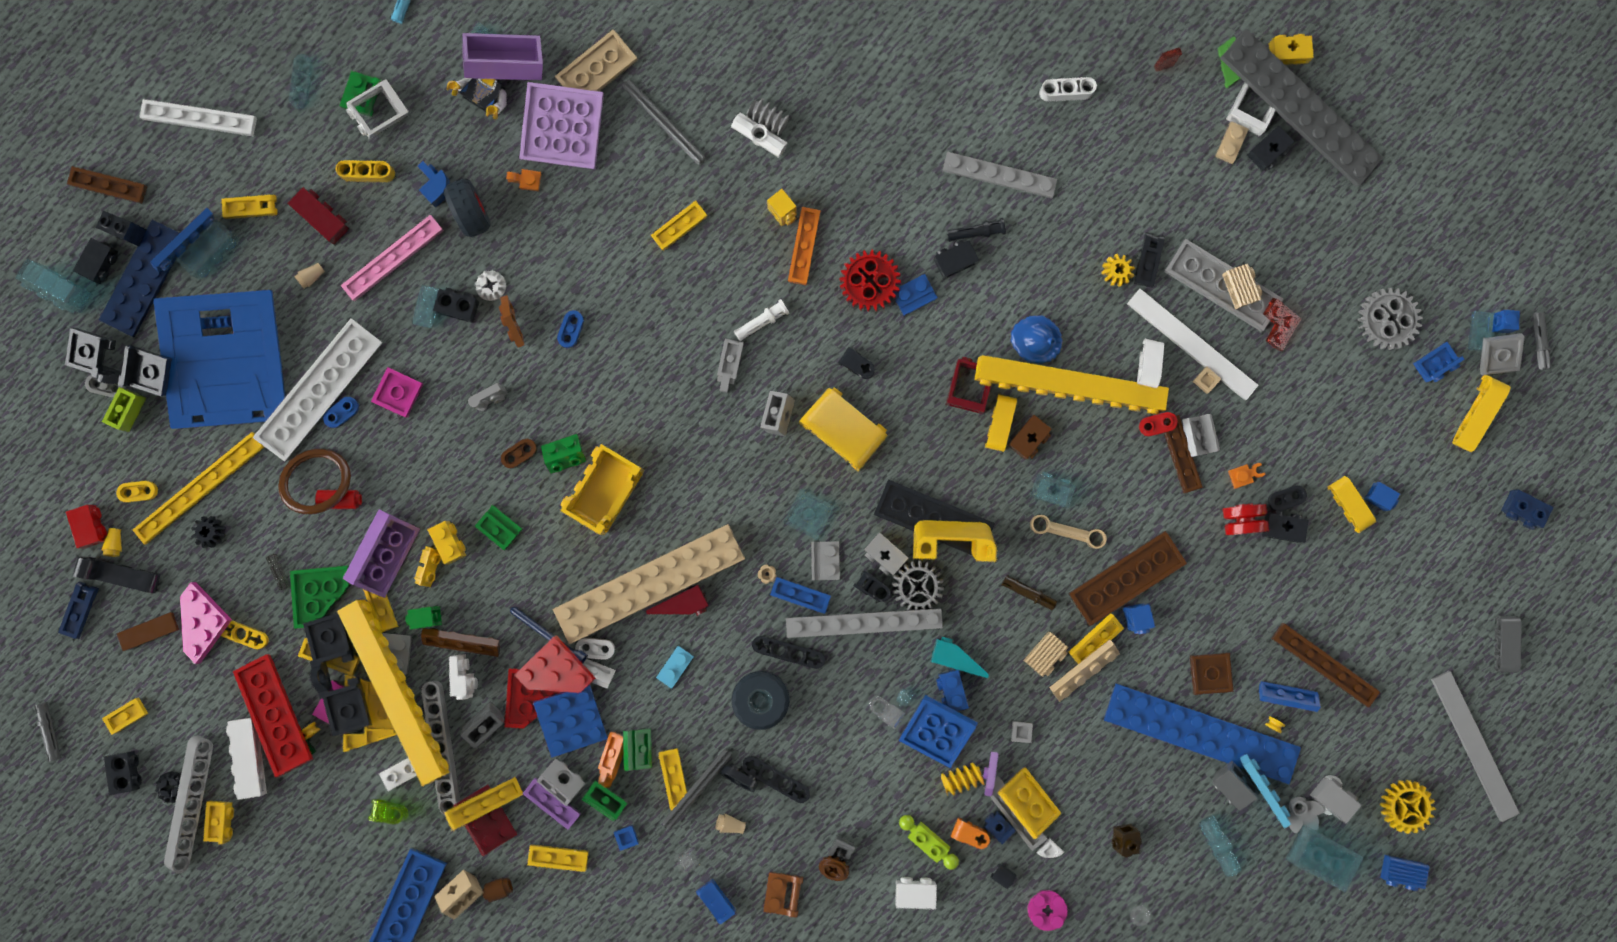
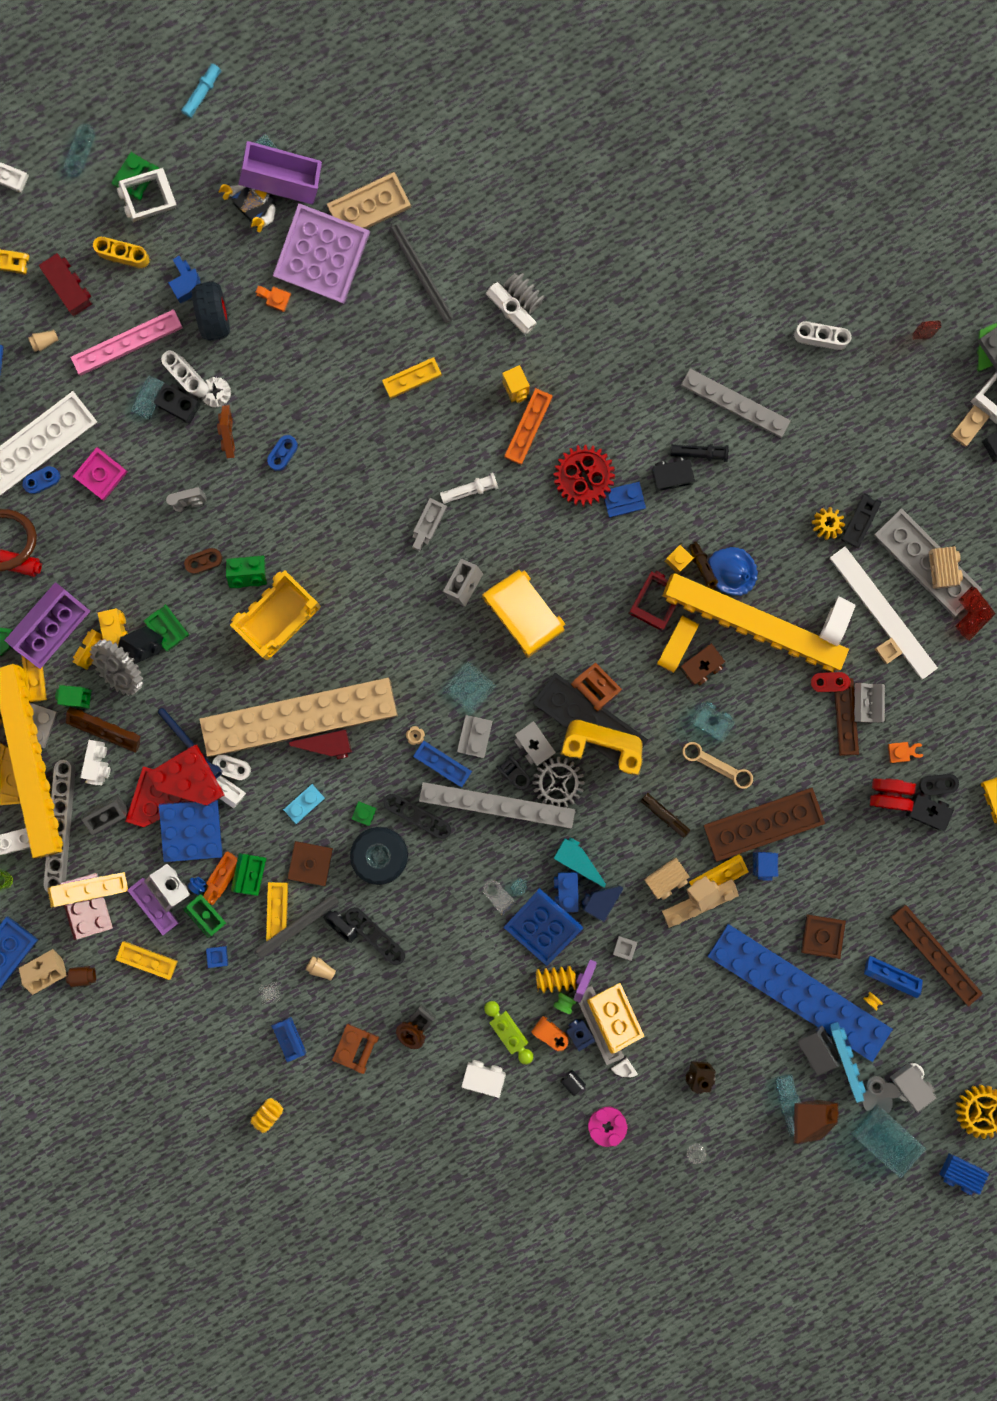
camera: 10 degrees right, 0 degrees up
(449, 271) = (191, 378): none -> white beam
(459, 578) = (116, 667): none -> light grey gear
(476, 551) = (141, 644): none -> black brick
(589, 772) = (197, 885): none -> blue plate
(695, 724) = (310, 863): none -> reddish brown plate
(735, 662) = (364, 813): none -> green plate
(854, 362) = (550, 550): black piece -> none
(936, 480) = (600, 683): none -> dark orange plate
(976, 800) = (564, 1003): none -> bright green wheel
(982, 340) = (679, 559): none -> yellow brick
(988, 692) = (601, 901): none -> dark blue slope
(1002, 334) = (705, 569): none -> dark brown axle
(1086, 660) = (703, 893): none -> tan brick
(1247, 854) = (814, 1120): none -> reddish brown slope

